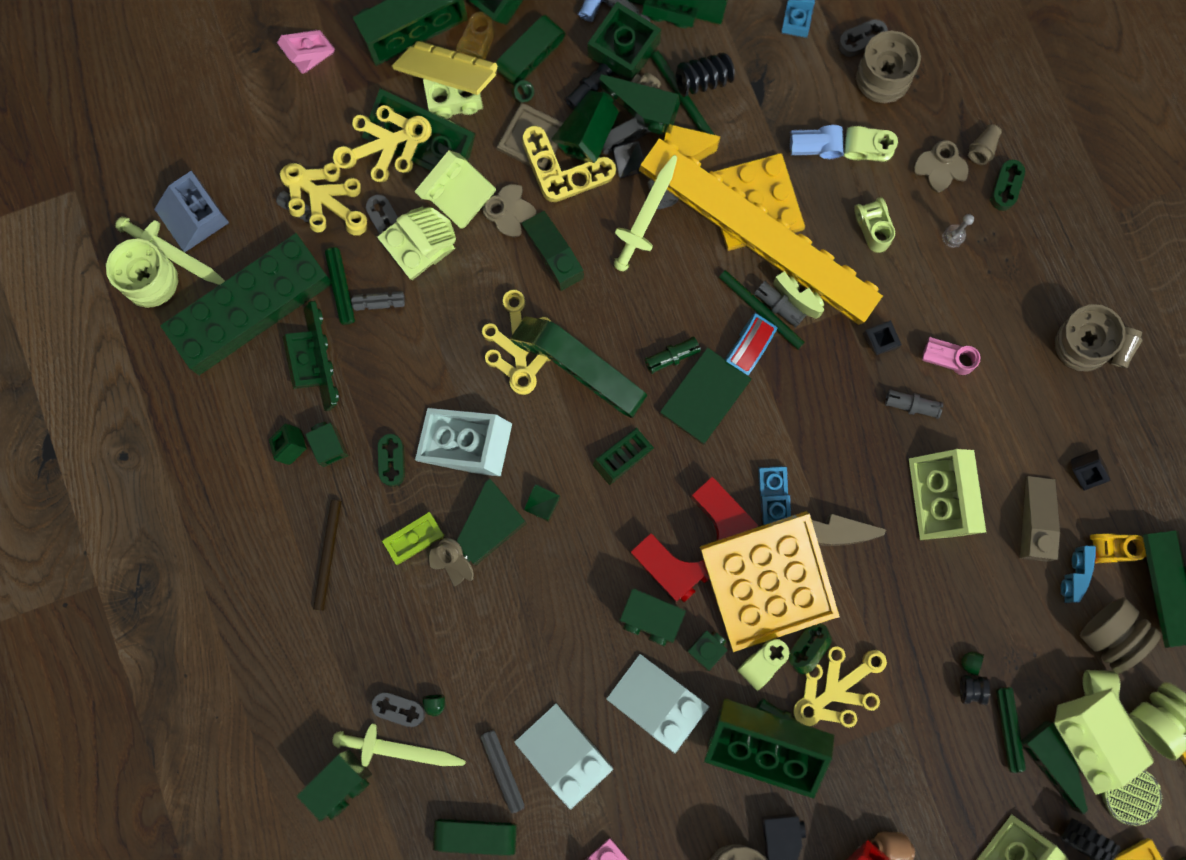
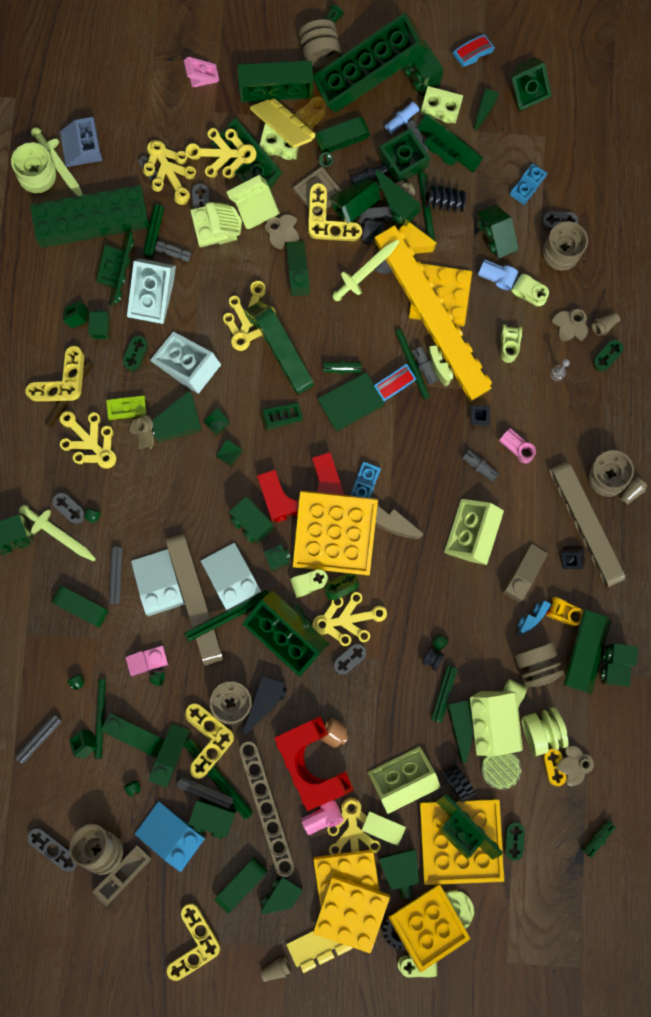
camera: 15 degrees right, 0 degrees up
(319, 541) = (66, 383): none -> light yellow beam
(373, 367) = (150, 290): none -> light aqua slope
(385, 607) = (89, 442): none -> light yellow plant
(577, 537) = (229, 453): none -> dark green slope
(623, 756) = (193, 596): none -> dark tan beam
(677, 762) = (224, 617): none -> dark green axle
(792, 82) = (498, 229): none -> dark green brick
(871, 744) = (346, 655): none -> dark grey beam
(1088, 418) = (587, 524): none -> dark tan beam

